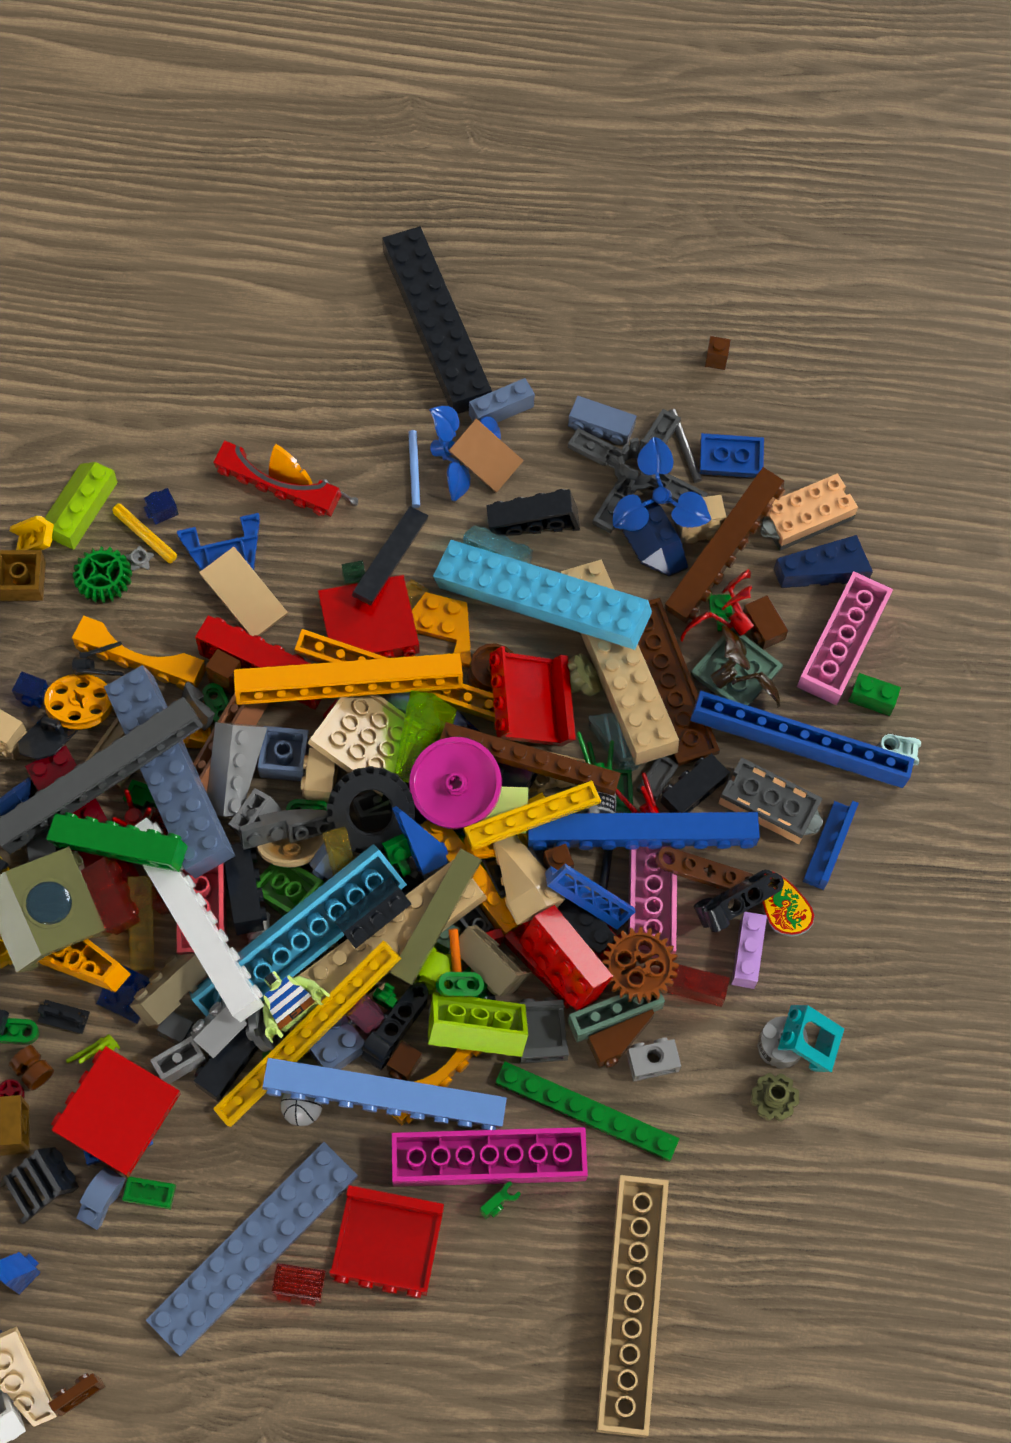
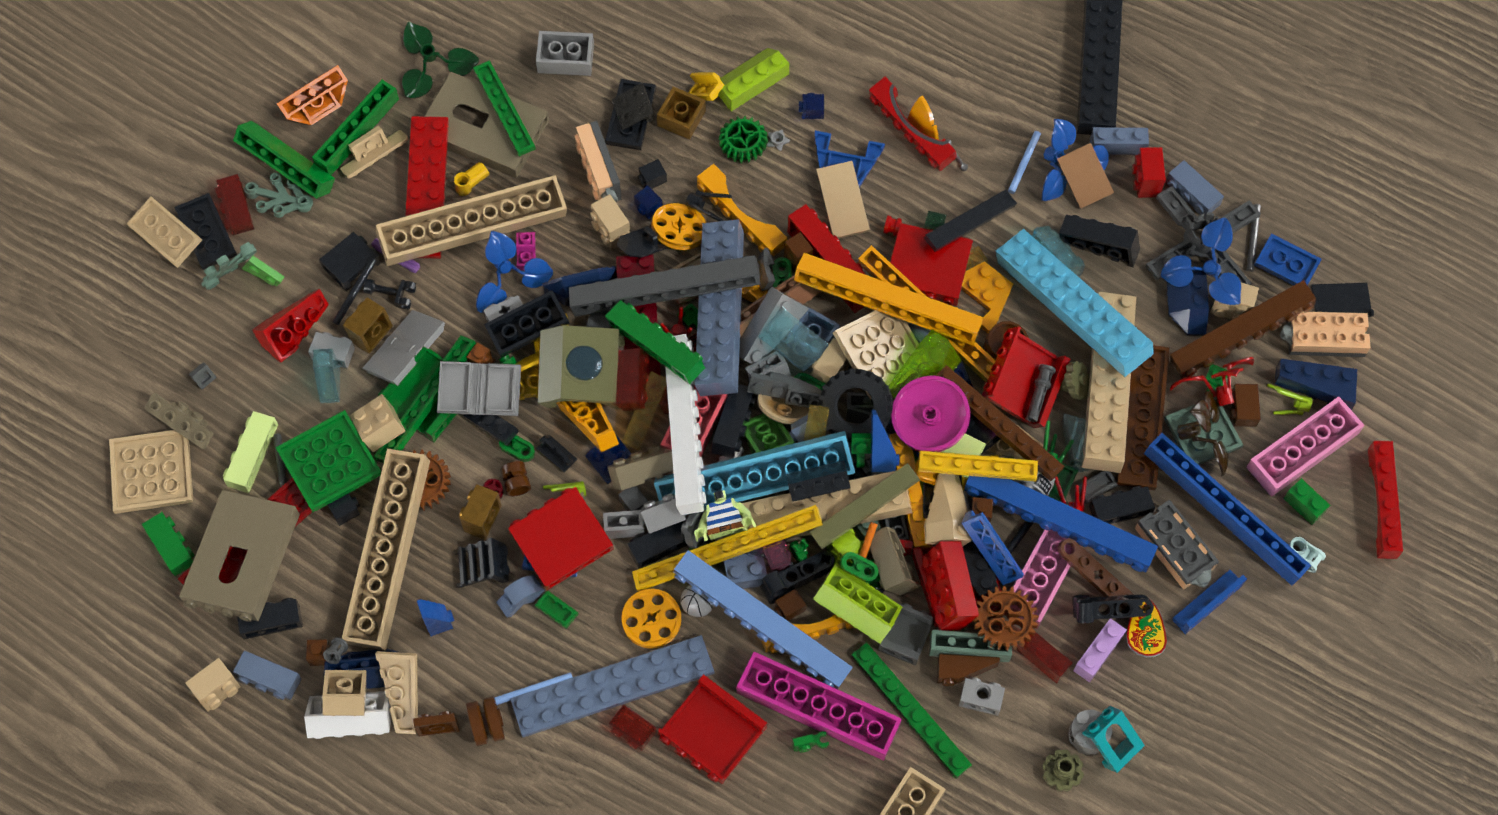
camera: 30 degrees right, 0 degrees up
(20, 657) = (652, 174): none -> black brick
(134, 1359) = (484, 721): none -> reddish brown wheel
(141, 1319) = (506, 697): none -> light blue bar
(144, 533) = (790, 122): yellow axle -> none
(252, 1140) = (651, 627): none -> light orange wedge
(268, 769) = (793, 340): none -> clear light blue slope
(310, 597) = (892, 225): none -> red wheel
(549, 423) = (1149, 172): none -> red brick
(551, 697) = (1041, 385): none -> dark grey pin
(717, 352) = (1318, 174): reddish brown brick -> none
(804, 468) = (1342, 298): none -> black piece
(816, 594) = (1301, 402): none -> lime plant
(969, 687) = (1389, 532): none -> red arch

